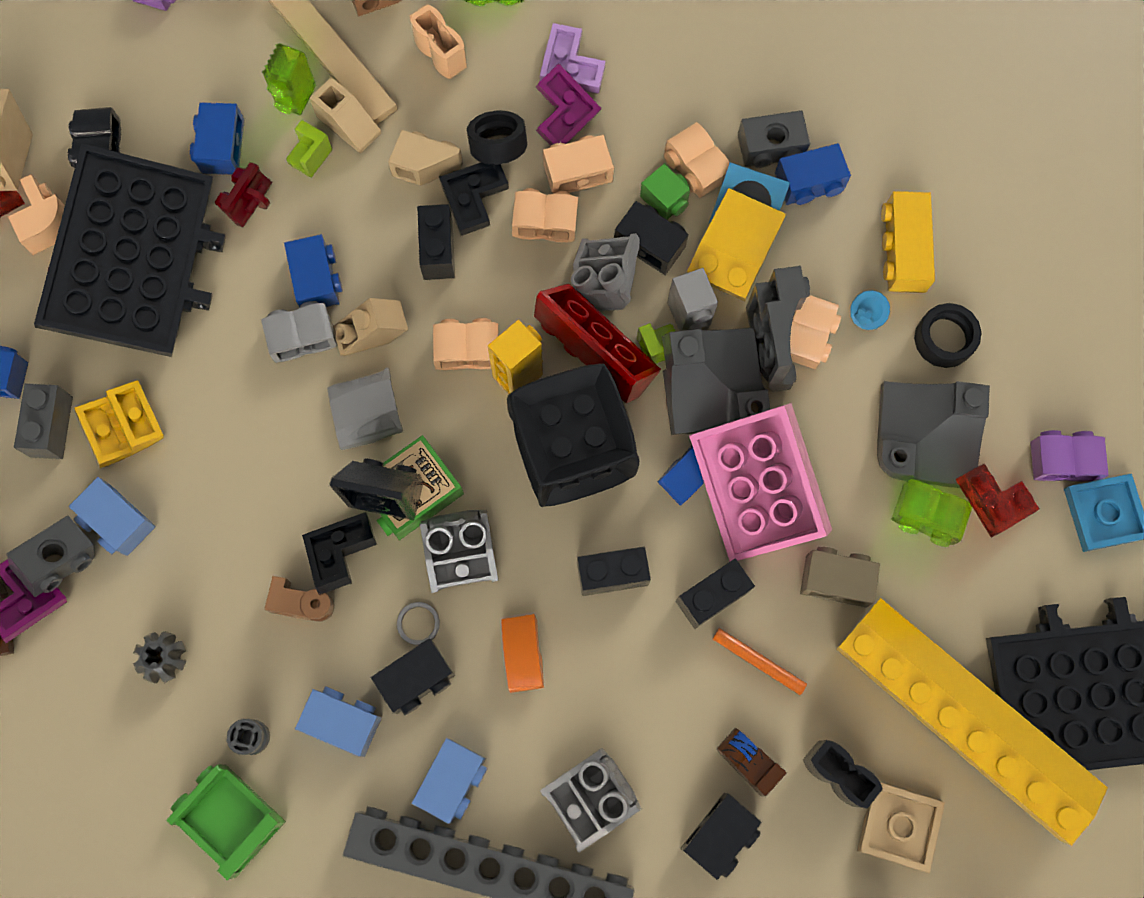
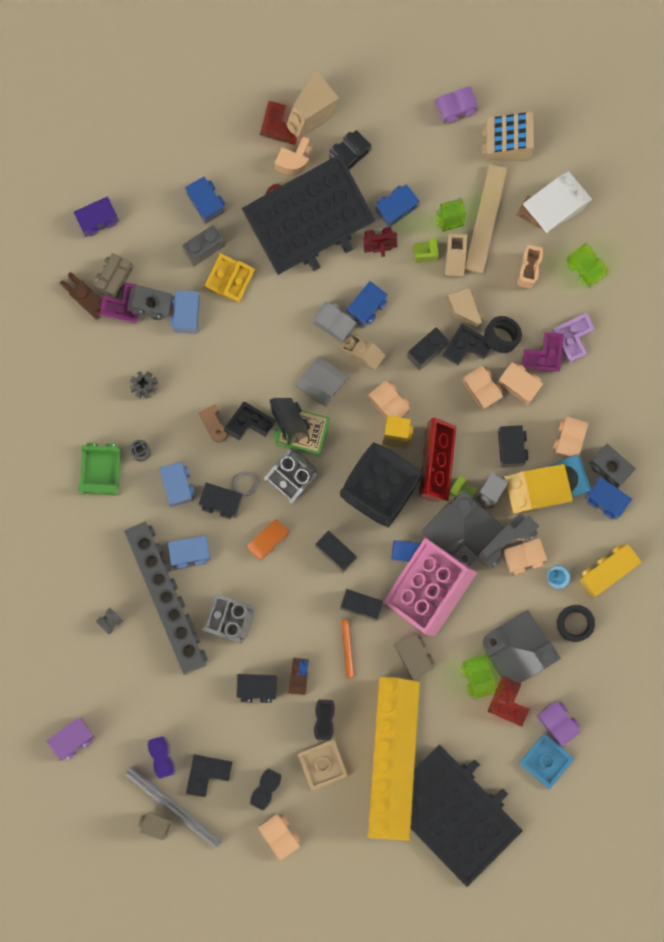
camera: 50 degrees right, 5 degrees up
(606, 271) = (476, 438): light grey slope -> none
(666, 192) = (541, 436): bright green brick -> none

